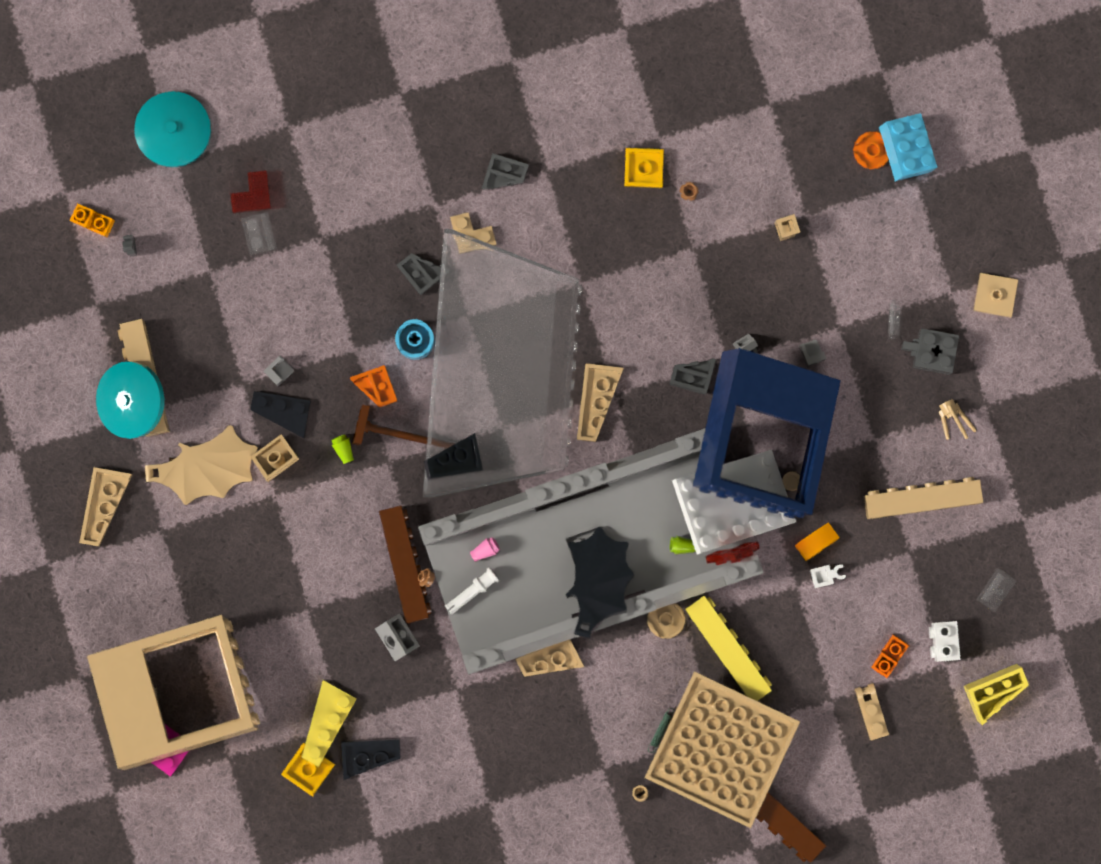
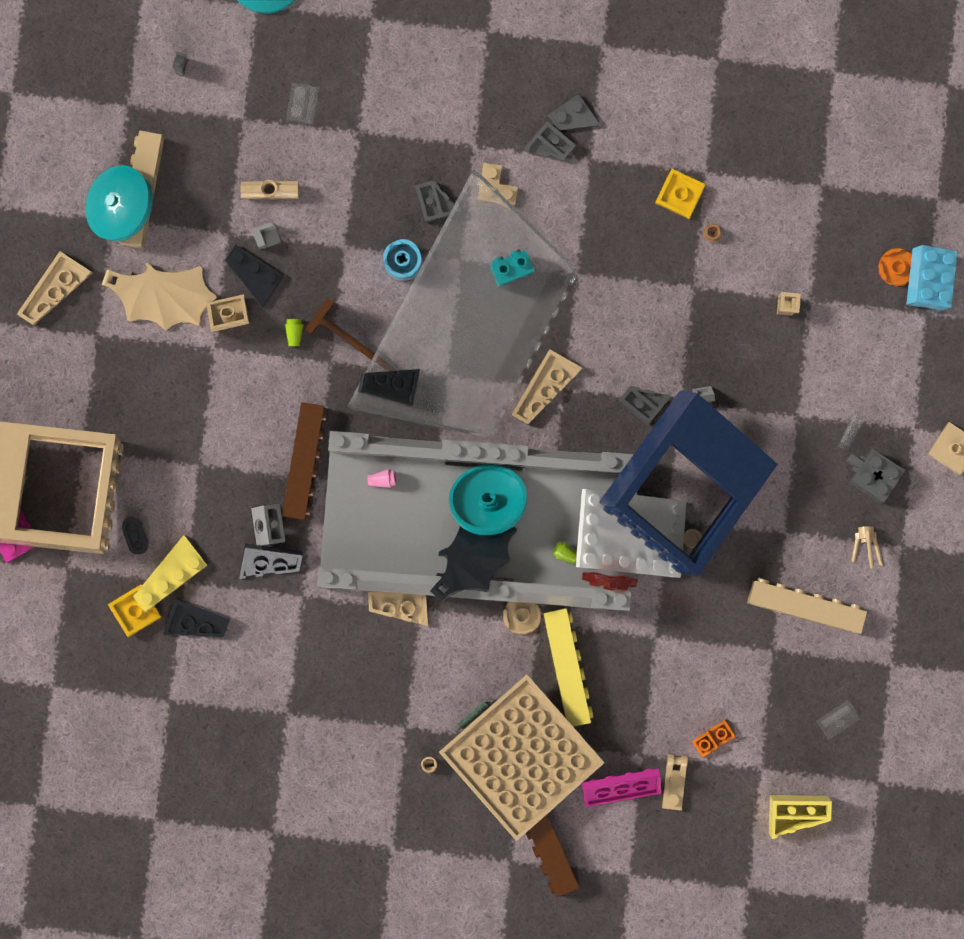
camera: 20 degrees right, 0 degrees up
(92, 220) = (156, 27): light orange slope -> none
(256, 198) = (314, 70): clear red plate -> none
(275, 321) = (283, 190): none -> tan piece
(278, 700) = (135, 535): none -> black plate
(376, 386) = (349, 287): orange wing -> none
(408, 670) = (264, 559): none -> wing
(426, 577) = (318, 481): medium nougat plate -> none
(479, 585) = (363, 509): white pin -> none
(513, 137) = (572, 115): none -> dark grey wing
(519, 304) = (511, 268): none -> teal brick
(590, 527) = (488, 499): none -> teal dish
(812, 353) = (761, 429): light grey panel -> none
(817, 541) = (691, 604): light orange slope -> none
(824, 576) = (684, 638): white plate -> none
(825, 737) = (621, 787): none -> dark pink plate
(945, 641) = (770, 746): white brick -> none

